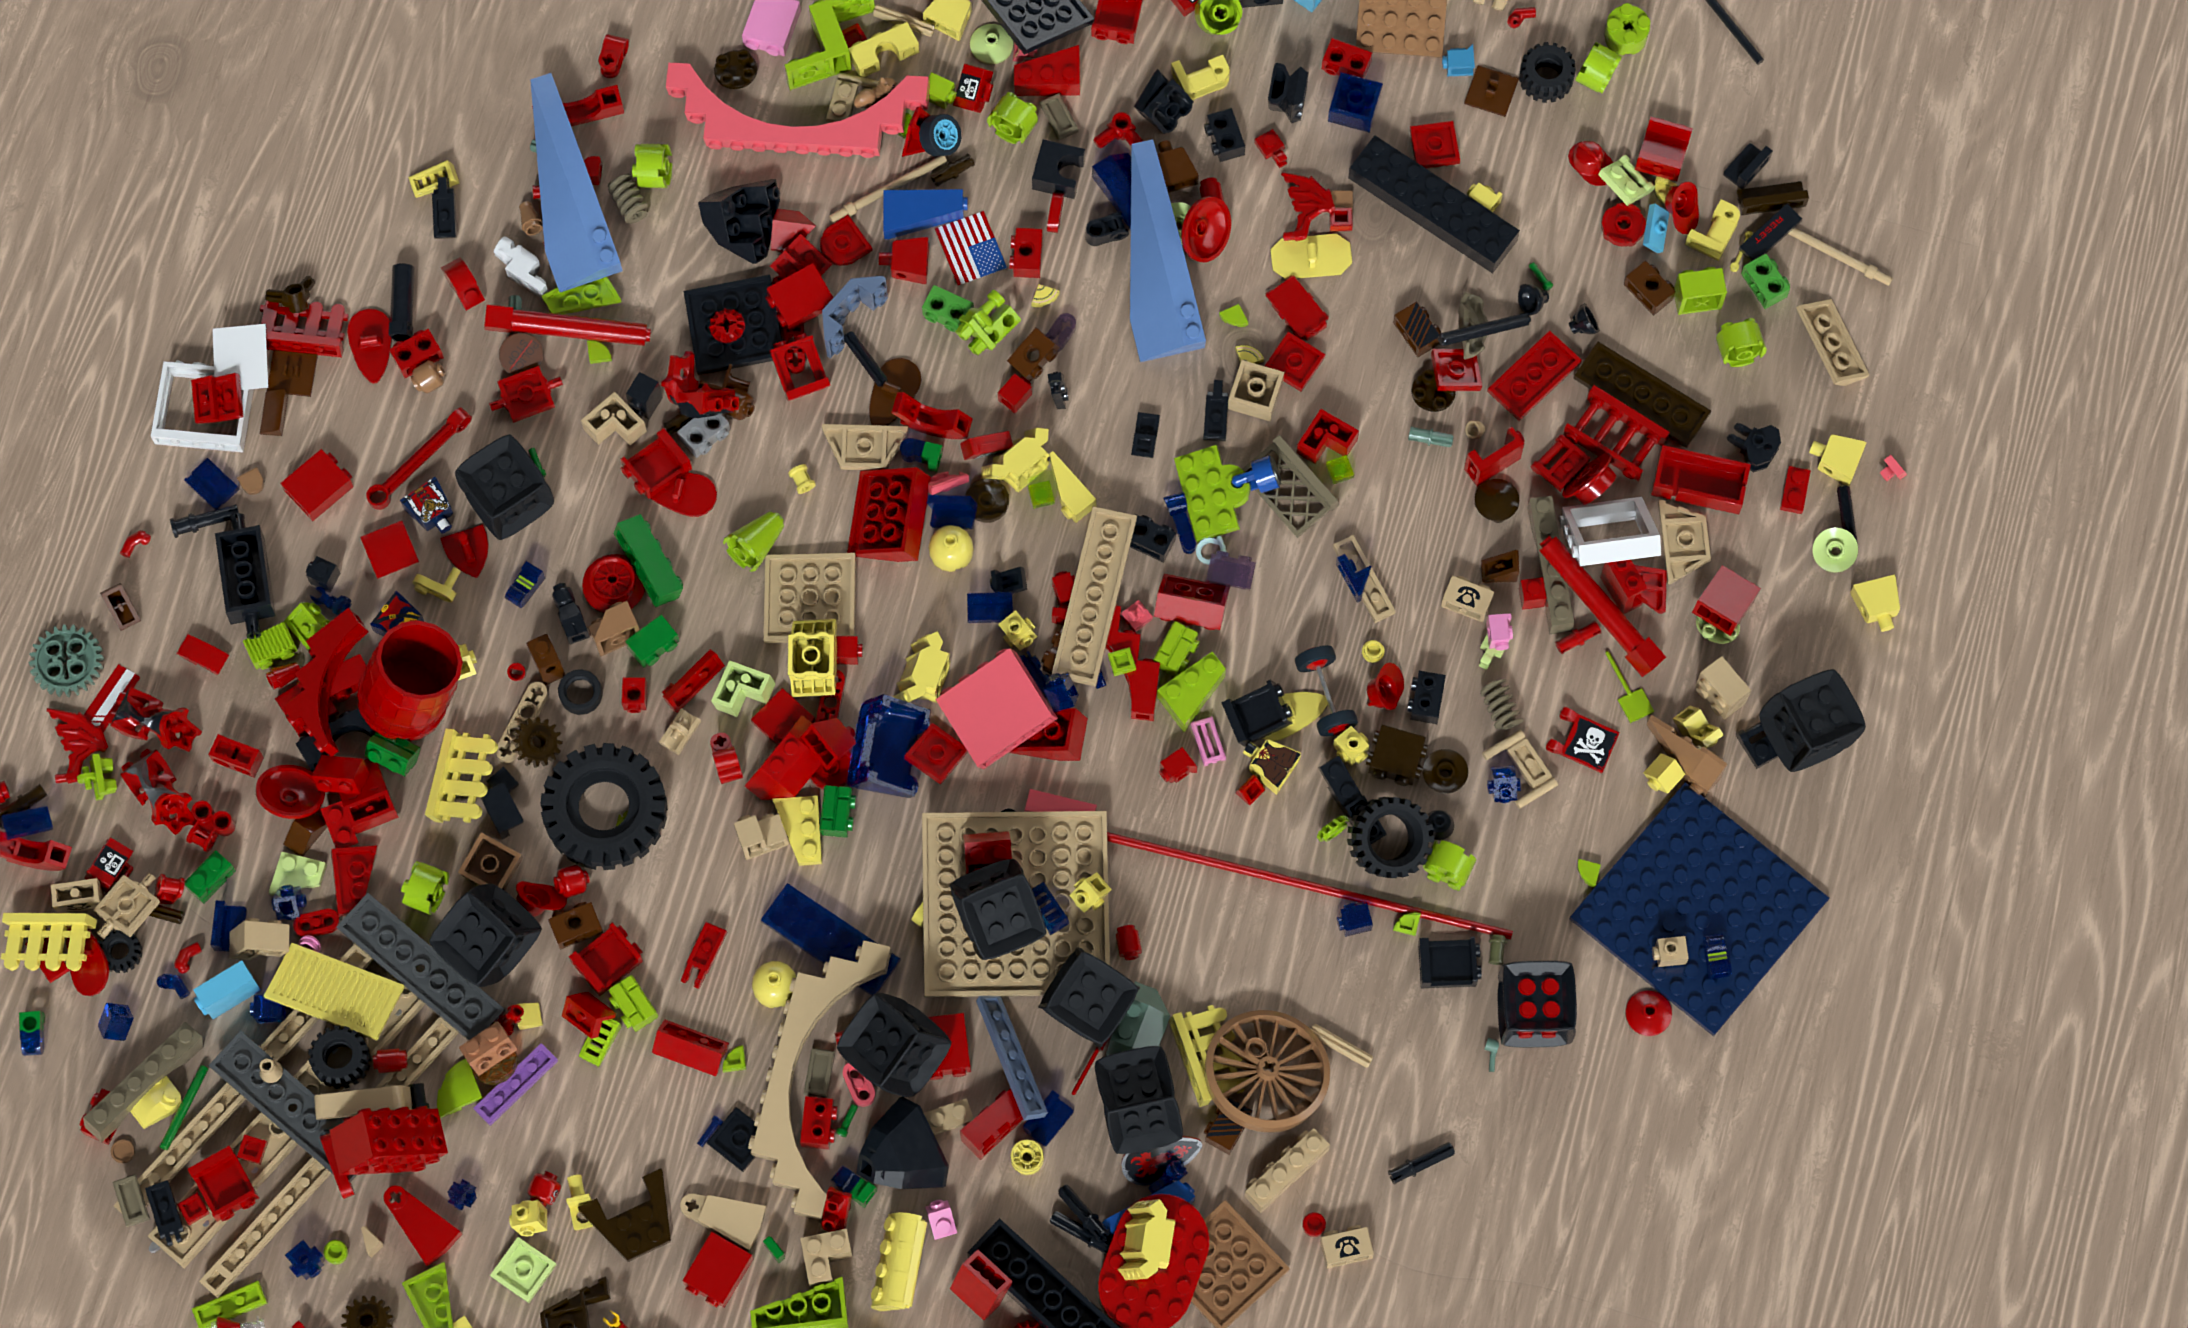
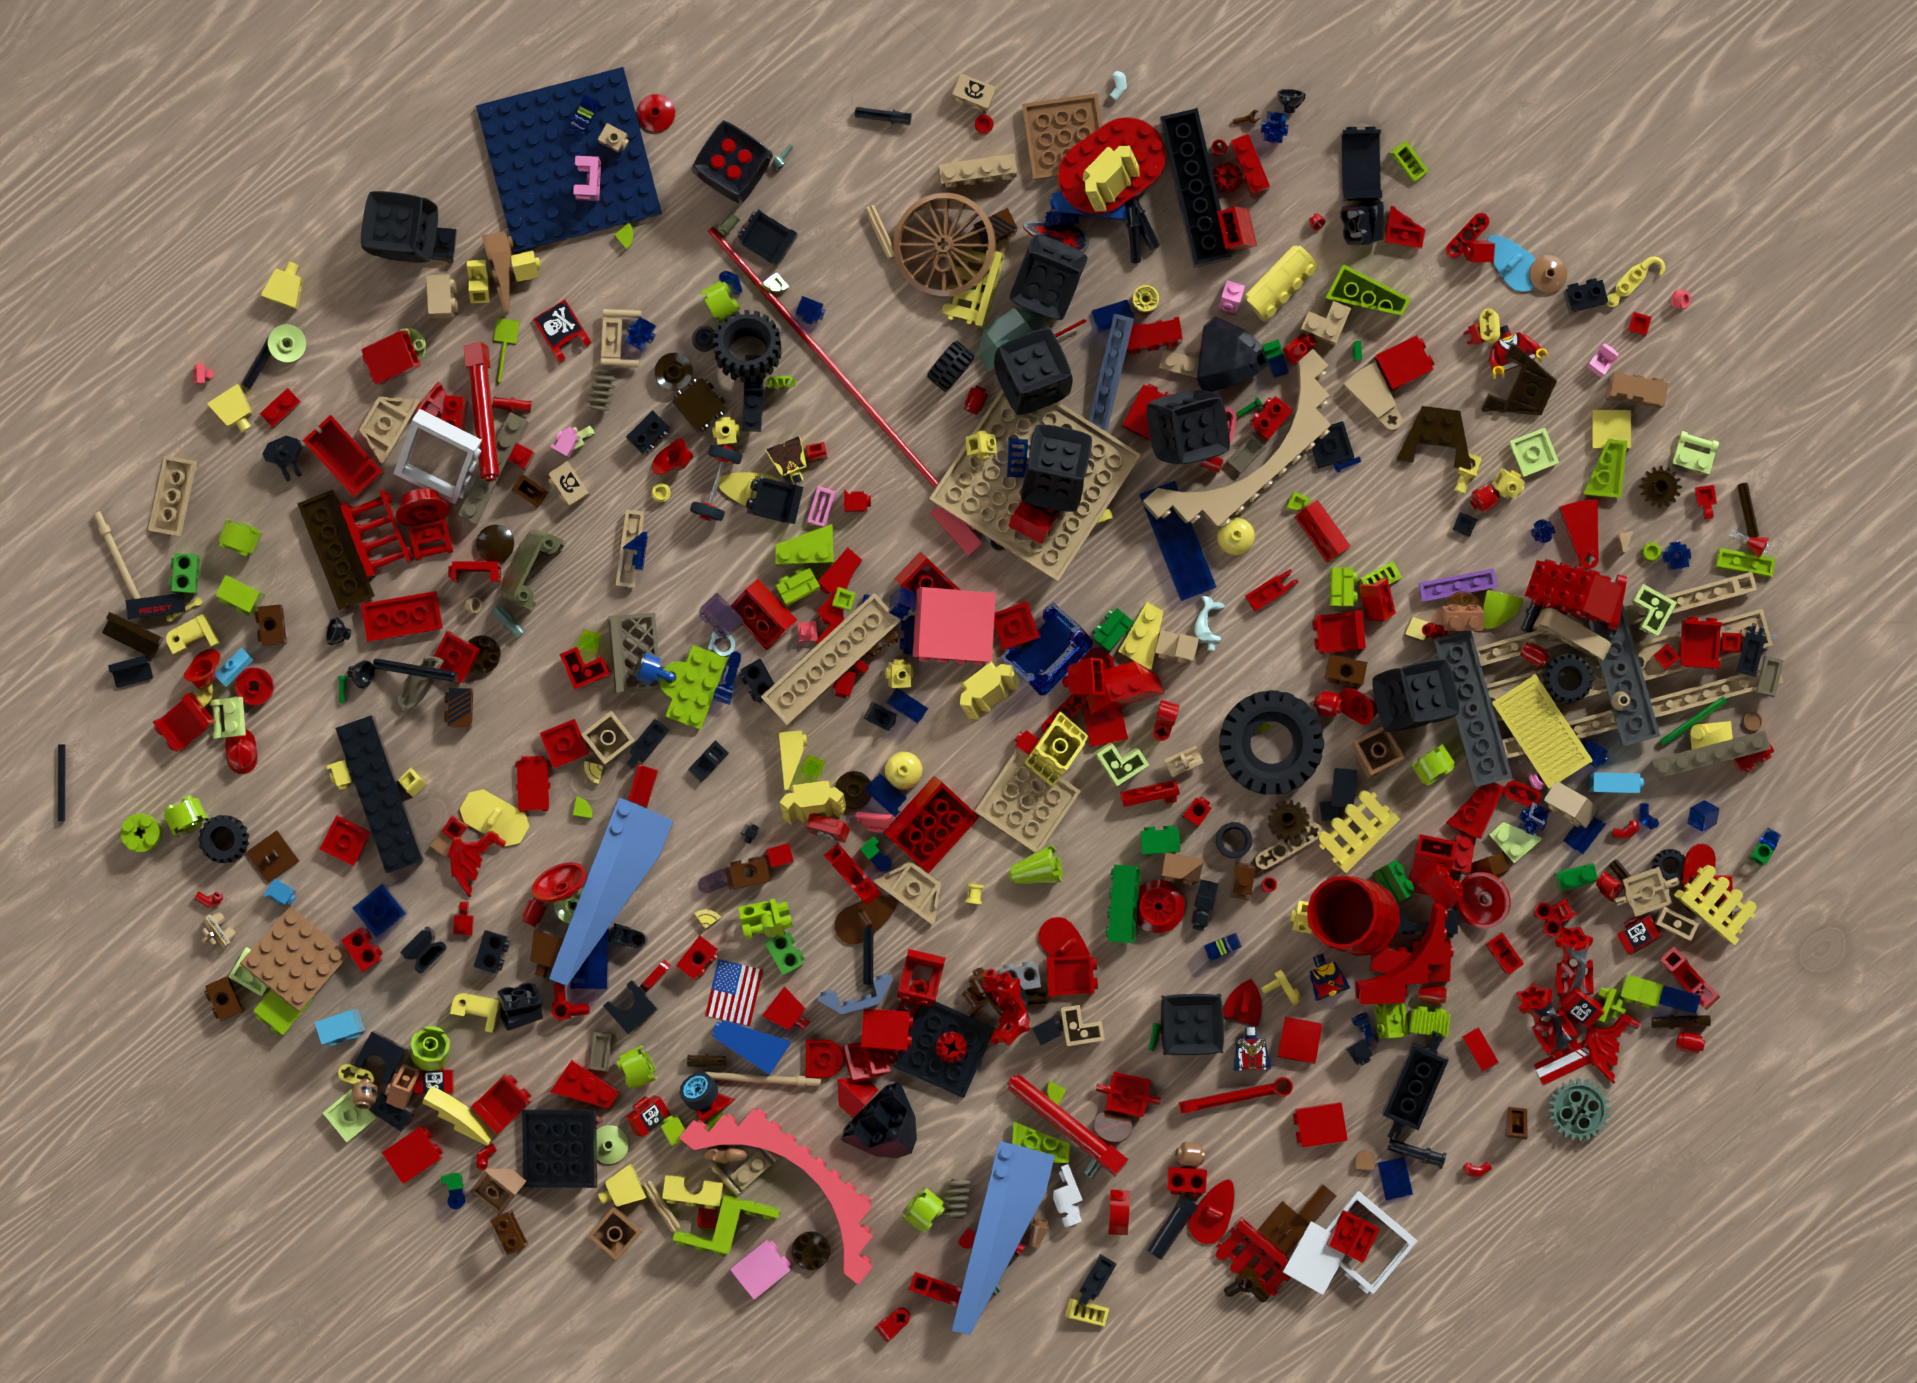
camera: 150 degrees left, 15 degrees up
(73, 811) = (1641, 991): none -> lime brick
(123, 754) = (1581, 1007): none -> red piece
(290, 1187) = (1657, 607): none -> yellowish green brick
(548, 1151) = (1464, 524): none -> black tile
(746, 868) = (1201, 626): none -> light aqua animal
(1175, 953) = (950, 366): none -> black tyre
(1192, 372) = (643, 785): none -> red panel
(1412, 236) = (411, 782): none -> light yellow slope
(1453, 900) = (731, 279): none -> clear blue arm
(1454, 520) = (513, 585): none -> olive windscreen
(1660, 897) = (591, 165): none -> bright pink panel

